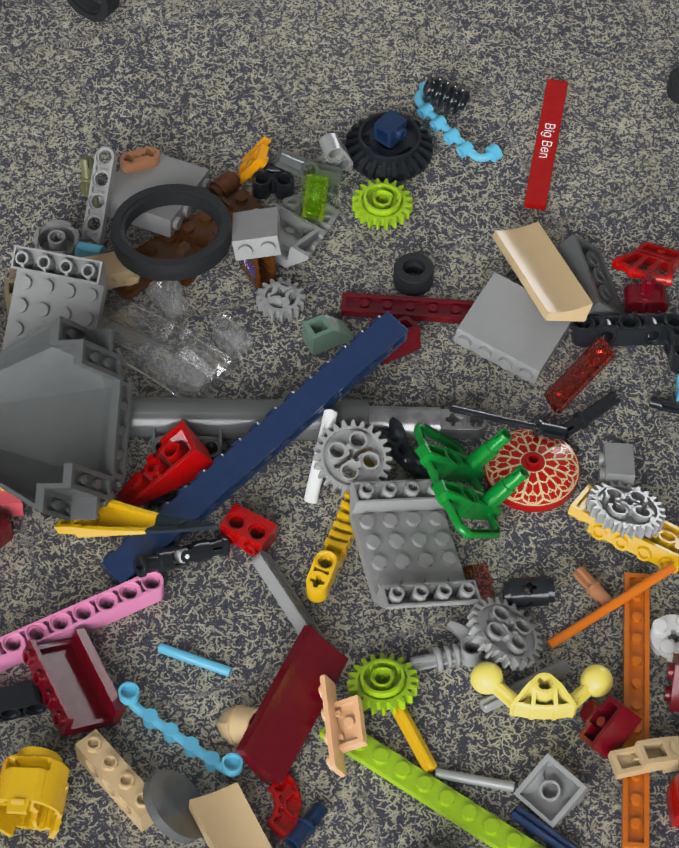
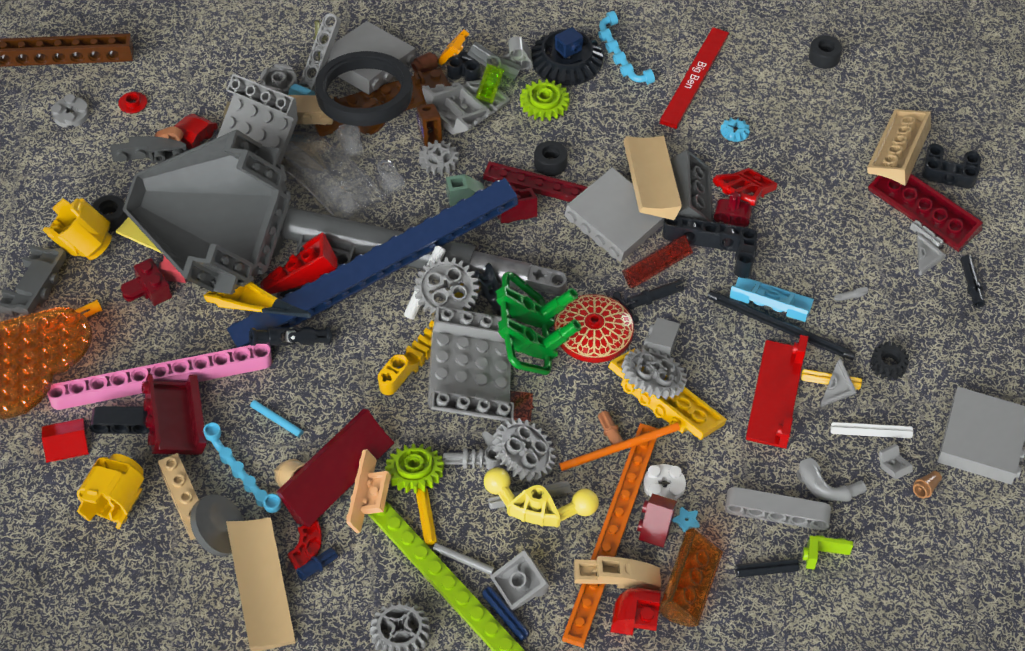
camera: 15 degrees right, 0 degrees up
(139, 159) = (362, 30): nougat beam -> none
(250, 526) = (354, 332): red brick -> none
(256, 233) = (430, 102): light grey brick -> none
(283, 592) = (362, 382): light grey beam -> none
(445, 93) = (623, 24): black piece -> none
(539, 428) = (609, 296): black piece -> none
(540, 586) = (565, 426): black piece -> none
(607, 202) = (739, 135): none -> medium azure gear
(607, 725) = (581, 539): dark red brick -> none

